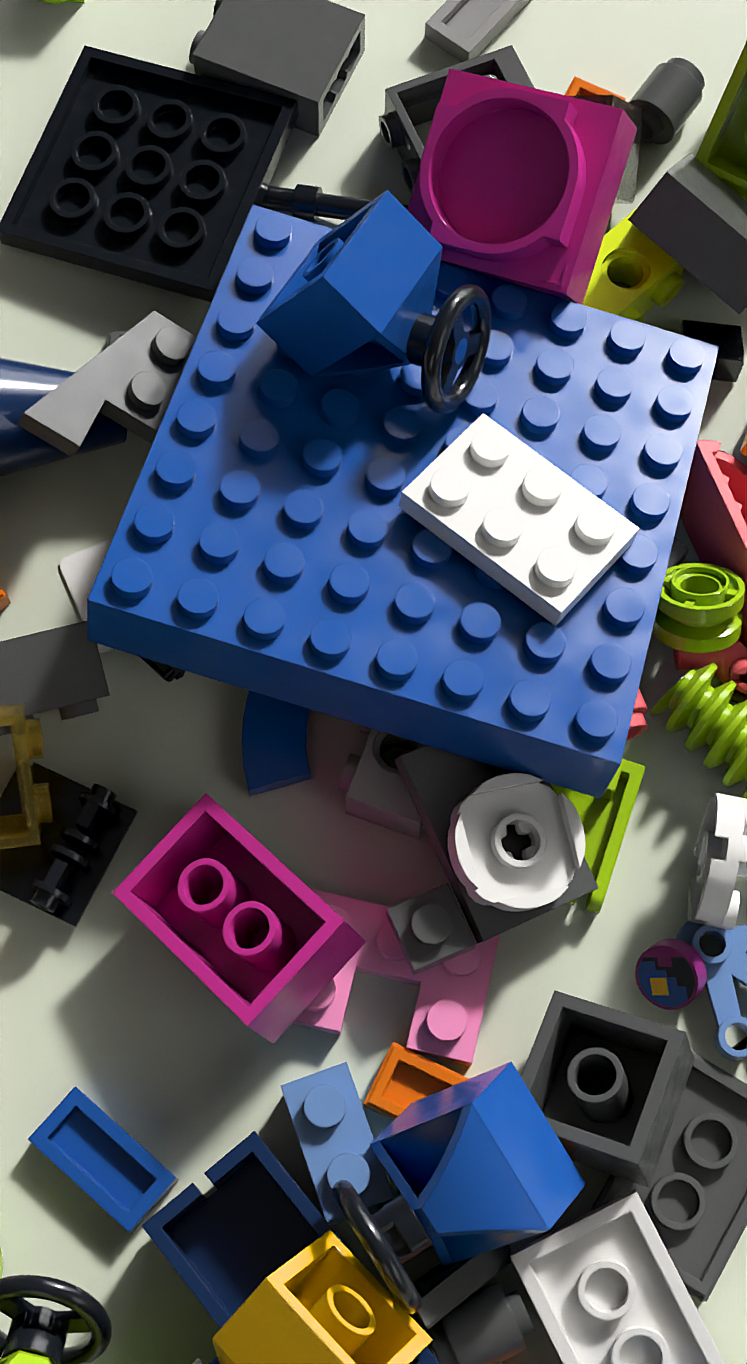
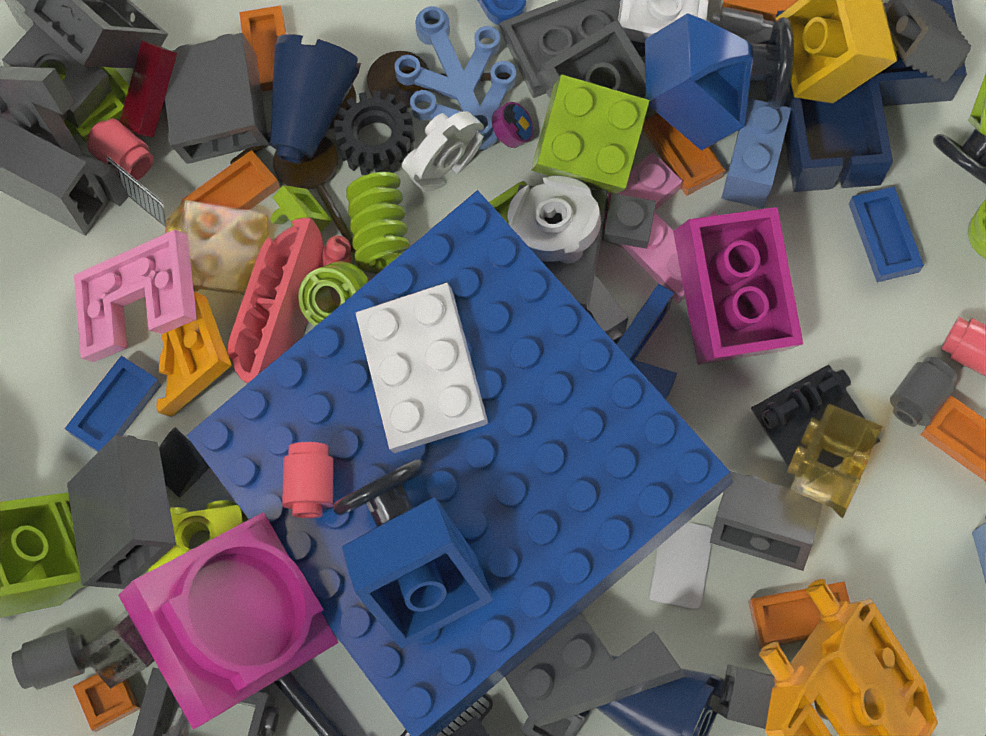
camera: 140 degrees left, 0 degrees up
(324, 806) = (646, 322): none -> blue tile
(545, 340) = (308, 479): none -> coral brick
(551, 973) = (590, 134): none -> lime brick

